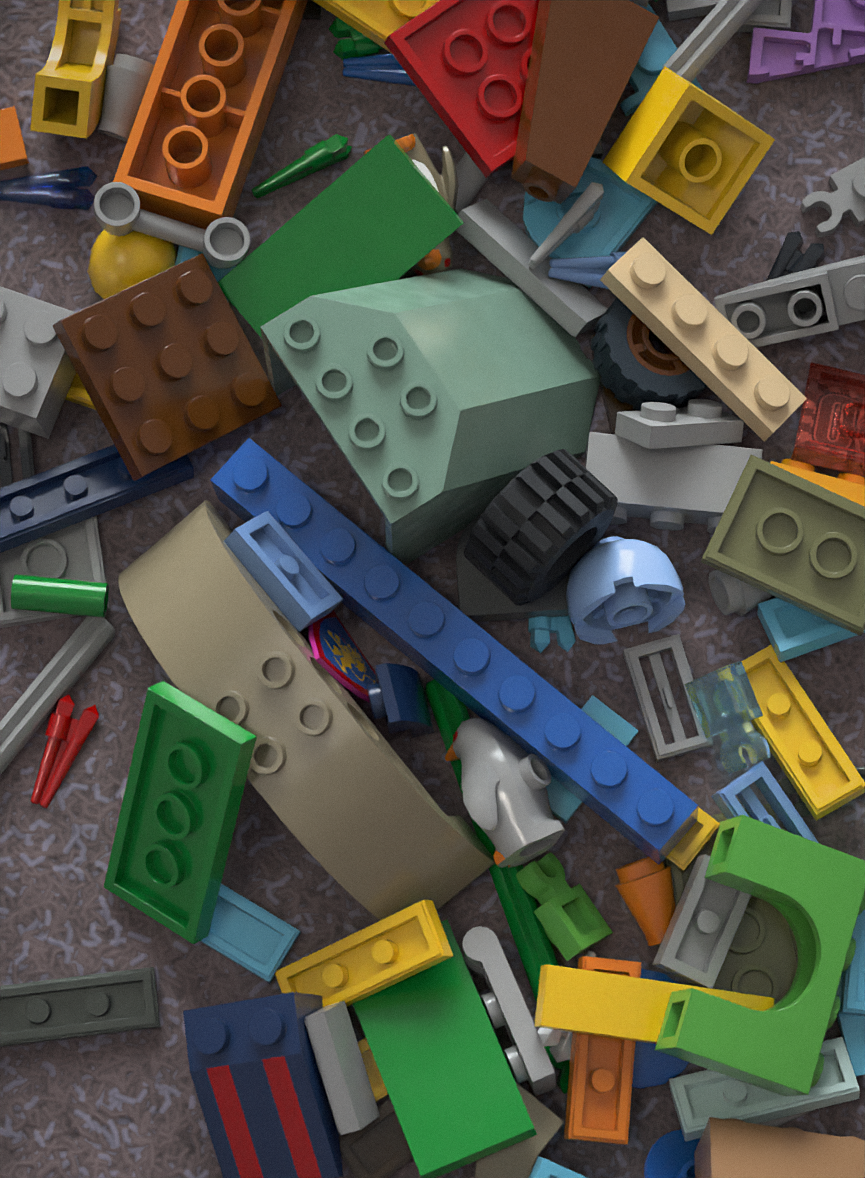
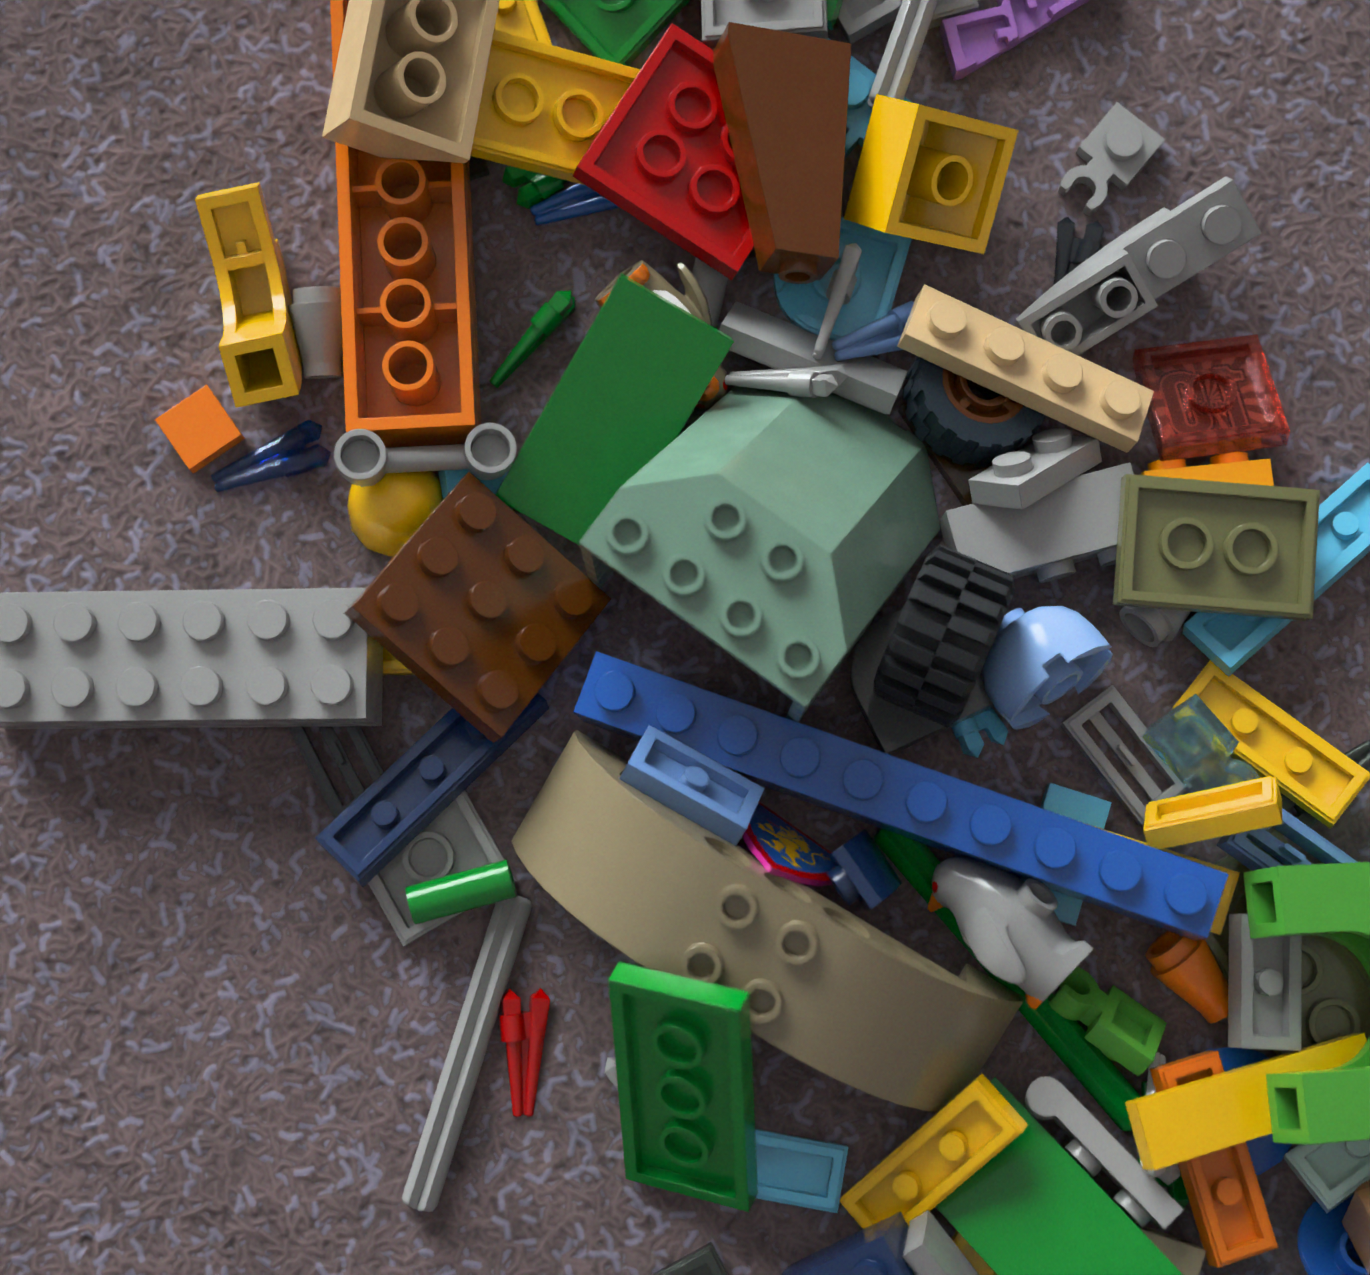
camera: 20 degrees left, 5 degrees up
(504, 279) = (796, 381): none -> light grey piece
(715, 761) = (1213, 813): none -> yellow tile

